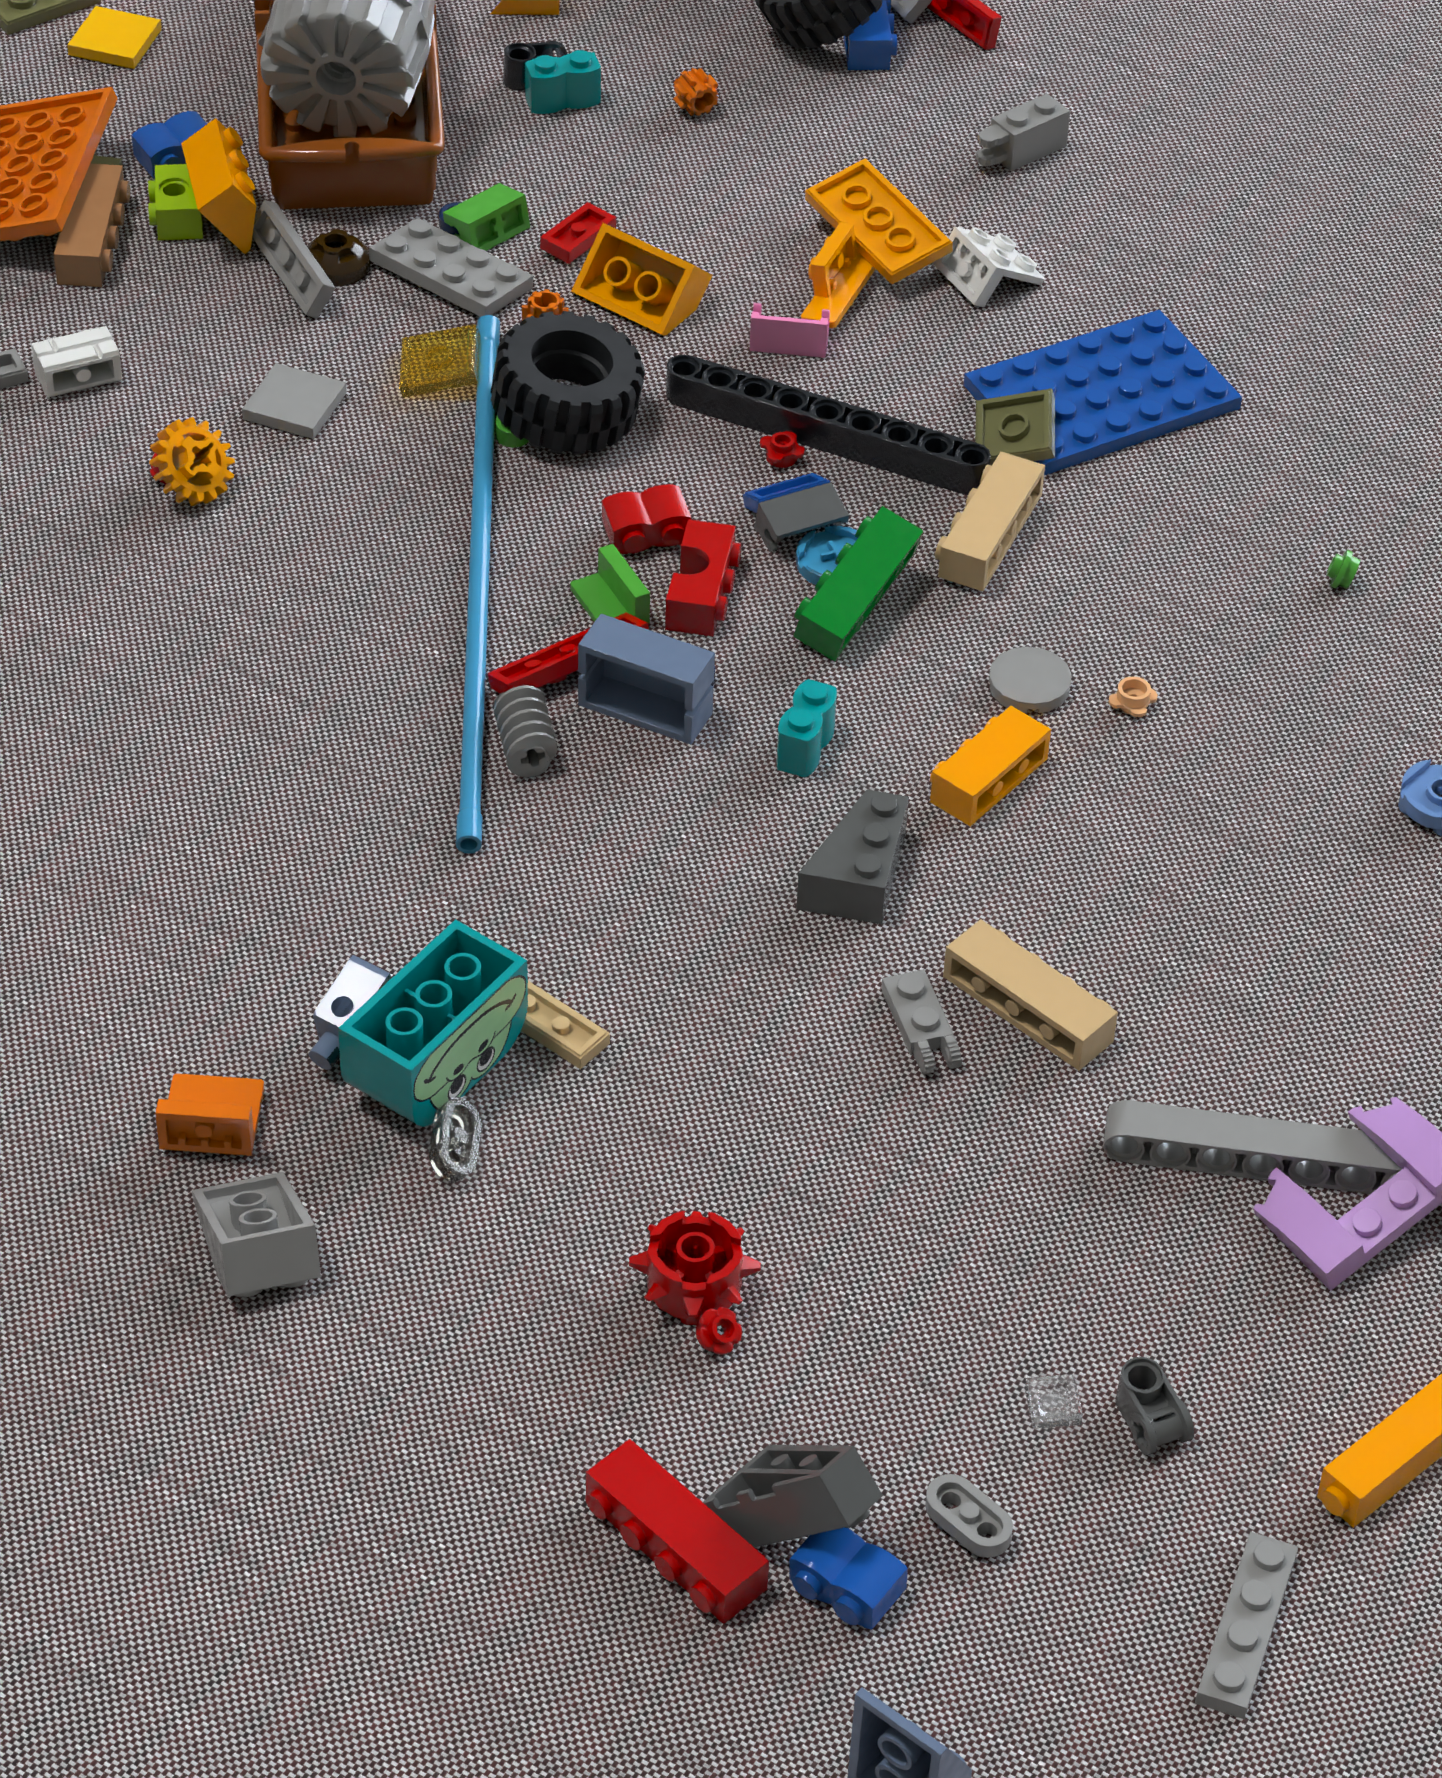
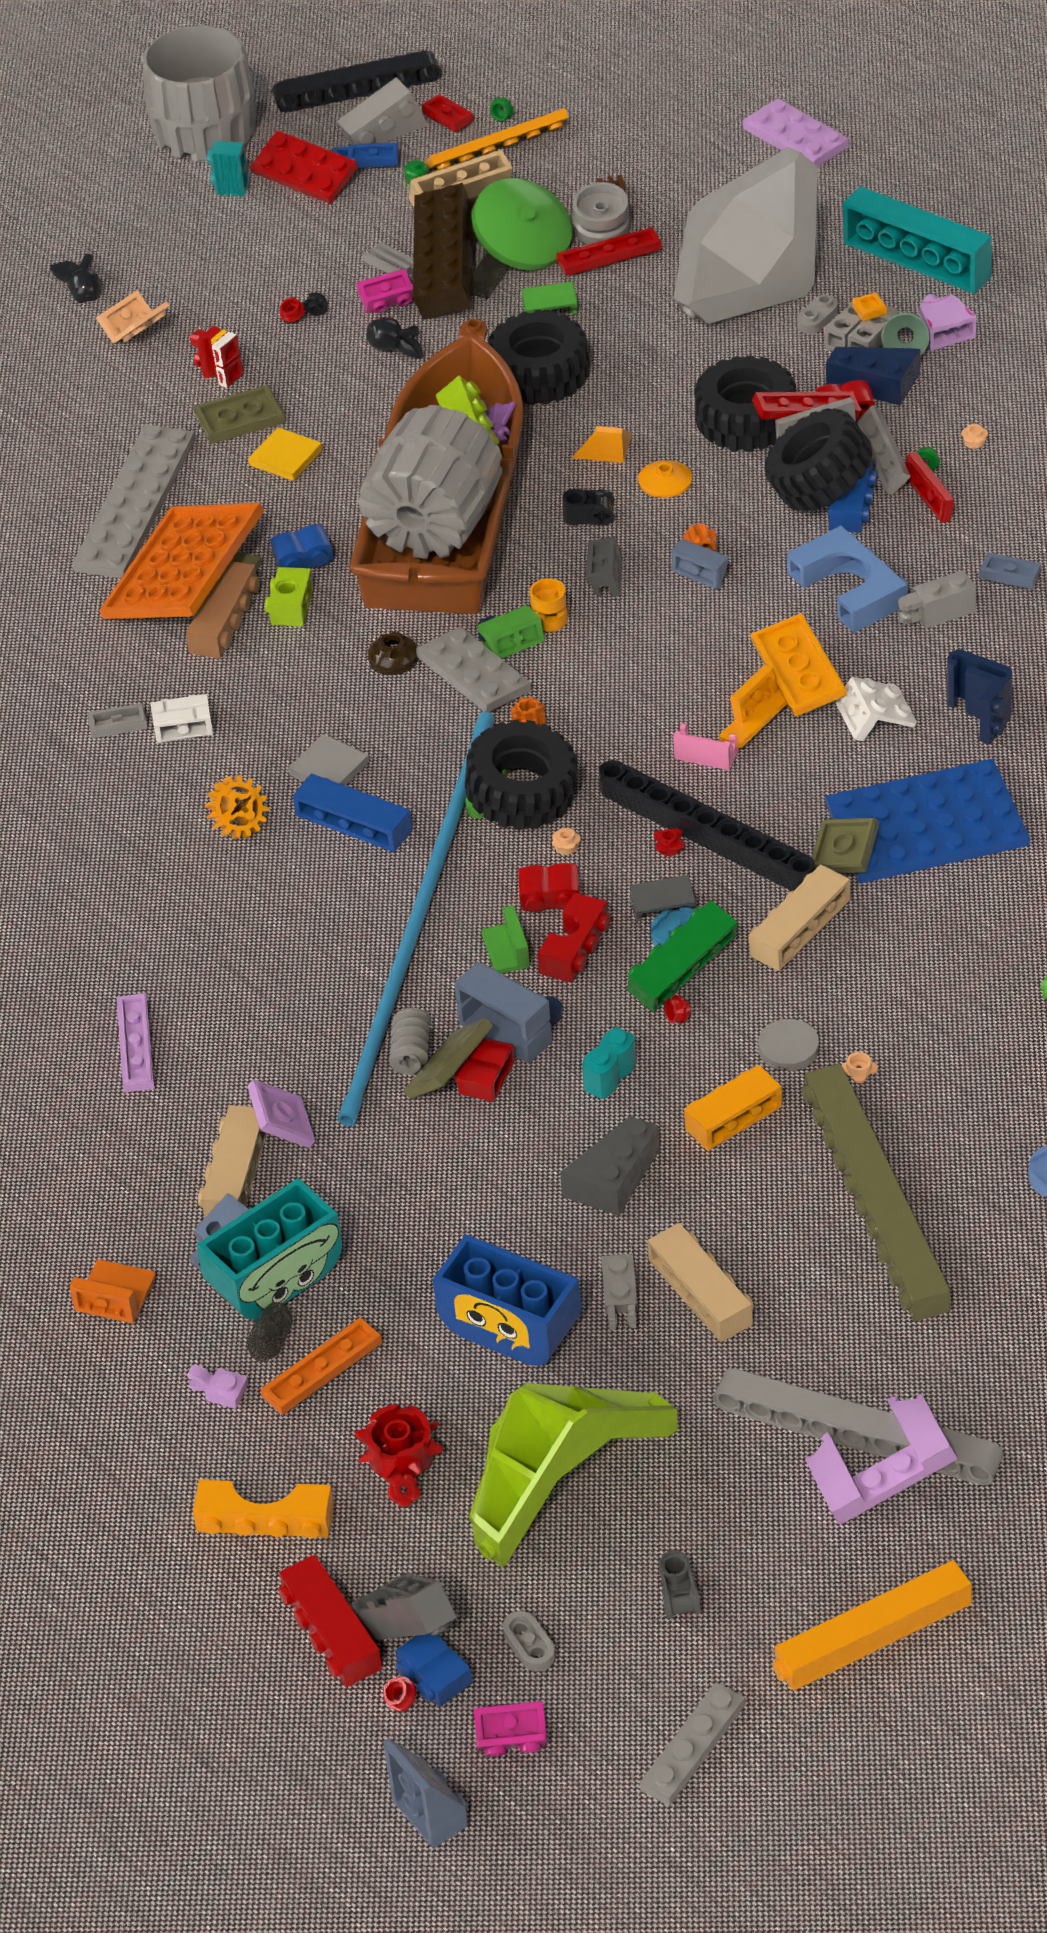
camera: 20 degrees right, 0 degrees up
(136, 779) = (135, 1042): none -> lavender tile
(222, 181) = (318, 586): light orange slope -> none
(258, 1234) = (118, 1379): light grey slope -> none
(291, 259) = (357, 651): light grey plate -> none
(329, 911) = (234, 1158): none -> tan brick
(349, 454) = (352, 812): none -> blue brick
(380, 844) = (281, 1113): none -> lavender tile
(409, 1225) = (221, 1388): none -> lavender plate
(439, 360) = (440, 744): clear yellow tile -> none
(472, 1397) = (301, 1513): none -> light orange arch
(530, 172) = (549, 603): none -> light orange wheel
(542, 1177) = (321, 1366): none -> orange plate
(548, 664) = (443, 991): red plate -> none
(562, 82) = (602, 521): teal brick -> none
(562, 1028) = (365, 1257): tan tile -> none
(576, 232) = (575, 650): red plate -> none
(582, 129) = (604, 565): none -> dark grey hinge
(588, 747) = (448, 1058): none -> olive tile
(619, 28) = (665, 478): none -> light orange dish
(639, 755) = (485, 1069): none -> red brick
(640, 281) = (607, 695): light orange slope -> none
(645, 461) = (566, 841): none -> light nougat plate
(703, 118) = (699, 563): none -> sand blue slope
(754, 497) = (658, 874): blue tile -> none
(790, 1051) = (506, 1301): none -> blue brick
(798, 1616) = (392, 1693): none -> red plate
(869, 652) = (677, 1009): none -> red plate
(876, 90) = (843, 553): none -> medium blue arch
(900, 1243) = (542, 1439): none -> lime panel
(988, 1642) = (510, 1728): none -> dark pink bracket
(1053, 1401) = (613, 1572): clear plate -> none
(1095, 94) = (1010, 570): none -> sand blue plate
(1123, 226) = (984, 687): none -> dark blue piece
(1222, 851) = (876, 1193): none -> olive brick

